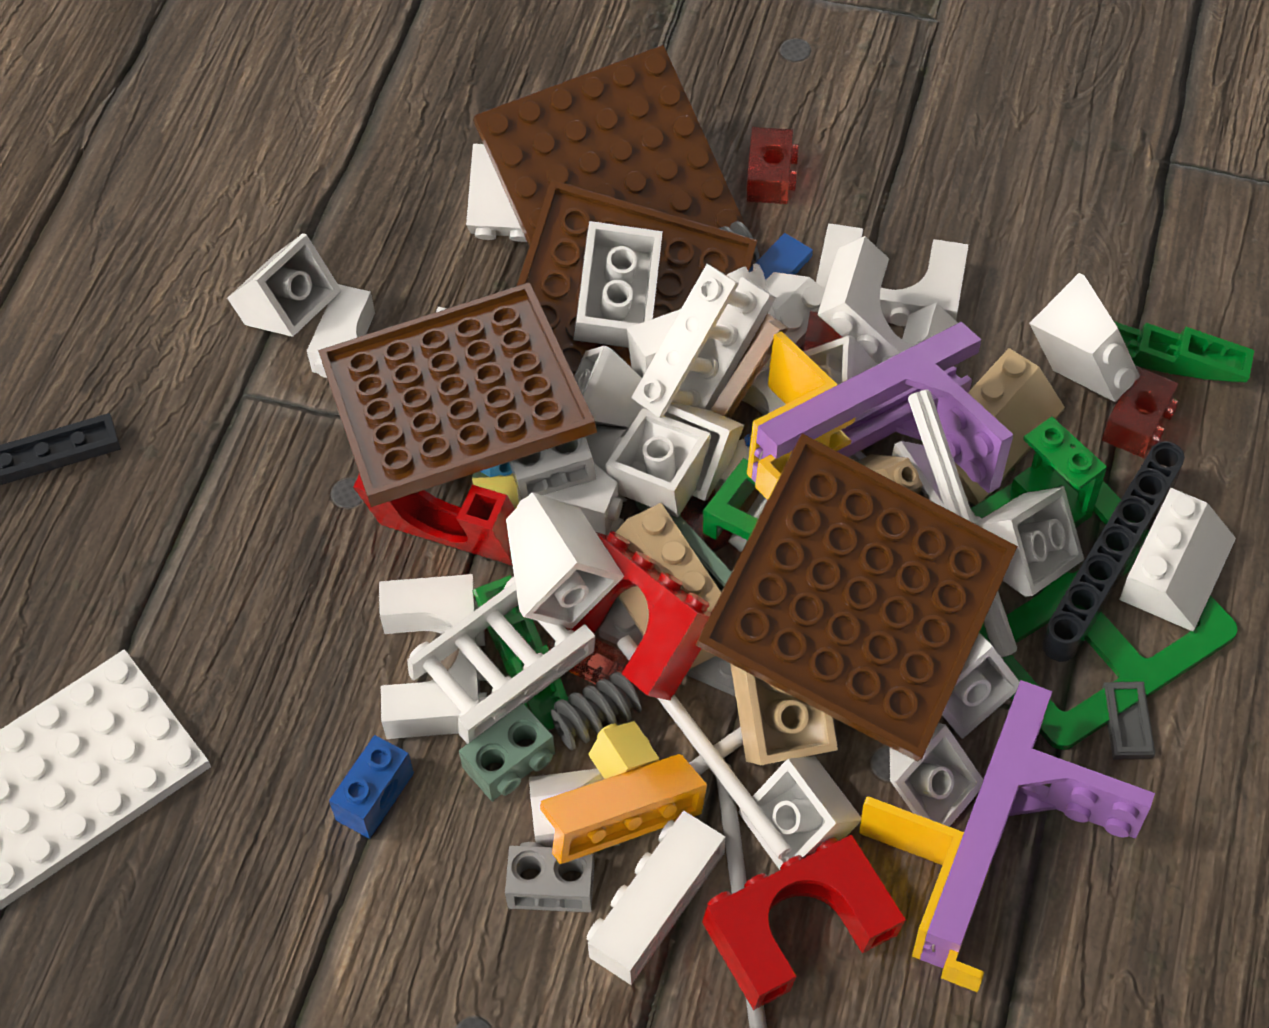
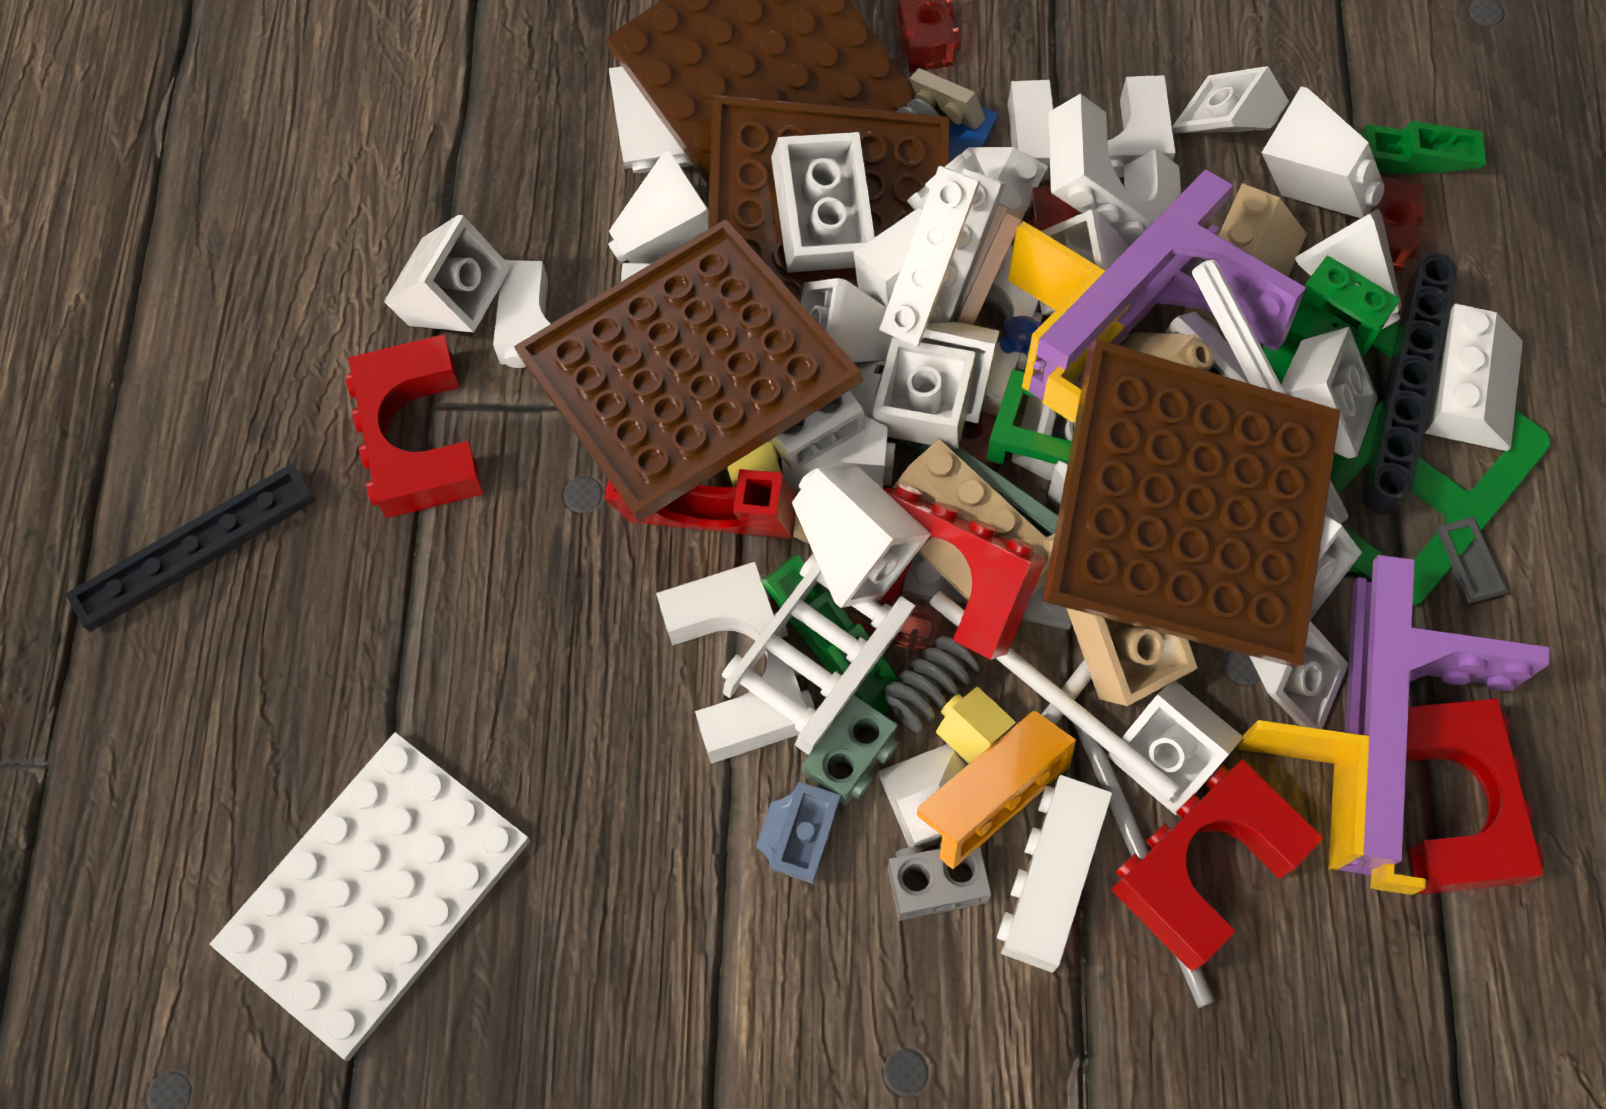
camera: 15 degrees left, 10 degrees up
(203, 367) = (382, 385): none -> red arch
(371, 786) = (717, 825): blue brick -> none
(444, 810) = (799, 831): none -> sand blue slope
(483, 269) = (659, 215): none -> white slope
(767, 227) = (948, 98): none -> dark tan plate
(1026, 281) = (1234, 103): none -> white slope
(1078, 869) = (1505, 847): none -> red arch
(1102, 427) = (1362, 249): none -> white slope

